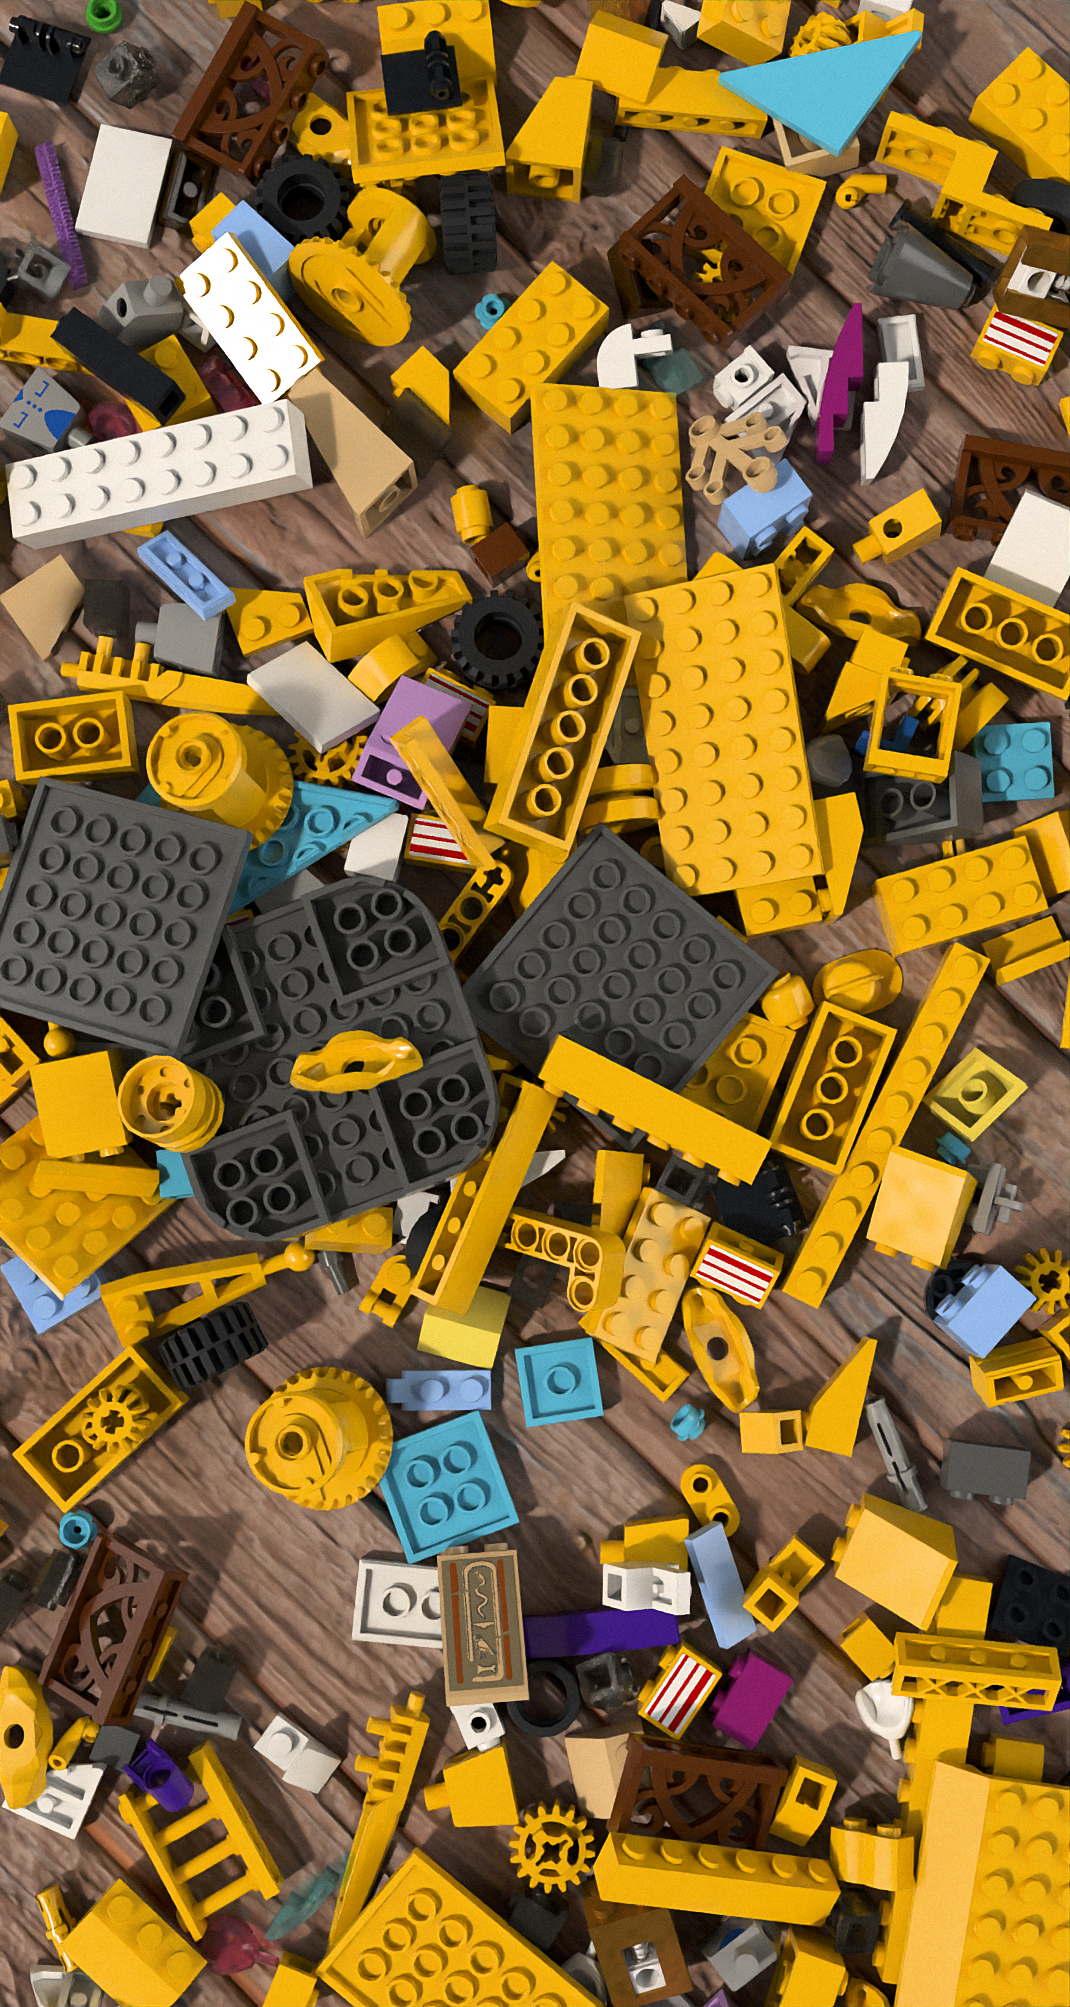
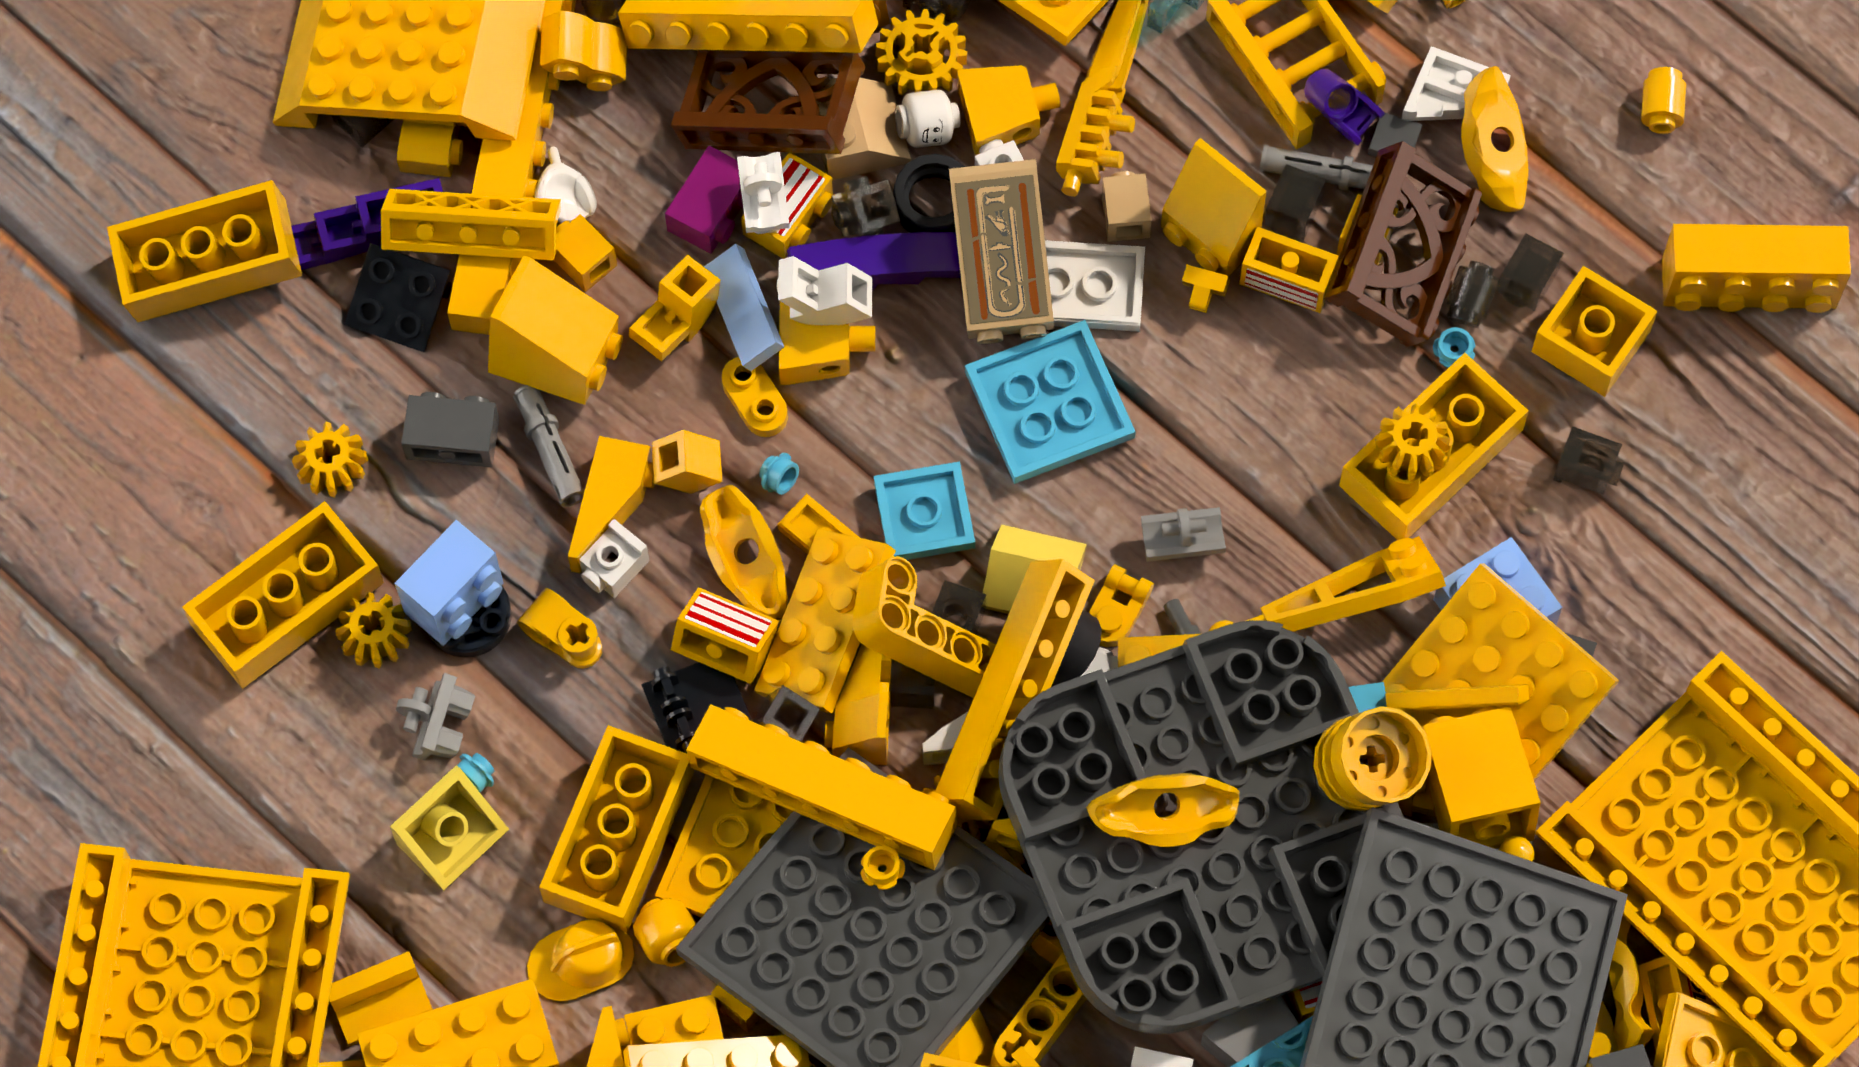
camera: 175 degrees right, 15 degrees down
(83, 1729) = (1444, 138): yellow arm -> none
(212, 1345) = (1313, 529): black tyre -> none
(220, 1607) = (1288, 269): none -> yellow brick
(285, 1664) = (1213, 210): none -> yellow slope
(298, 1597) = (1204, 285): none -> yellow tile
(298, 1754) = (1188, 121): white slope -> none
(321, 1439) = (1189, 438): yellow piece -> none
(330, 1350) = (1183, 534): none -> light grey hips
(366, 1680) = (1126, 206): none -> tan brick
(441, 1389) = (1057, 502): light blue hinge -> none
(548, 1776) = (927, 118): none -> white head
(612, 1029) = (882, 856): none -> yellow plate
(703, 1692) = (763, 193): none -> white hips
(802, 1801) = (652, 104): yellow slope -> none
(821, 1344) = (615, 575): none -> white brick
(884, 1124) = (548, 799): yellow brick -> none
(884, 1281) = (557, 625): none -> yellow piece
(920, 1208) = (515, 698): yellow slope -> none
(1017, 1372) = (407, 527): yellow brick -> none

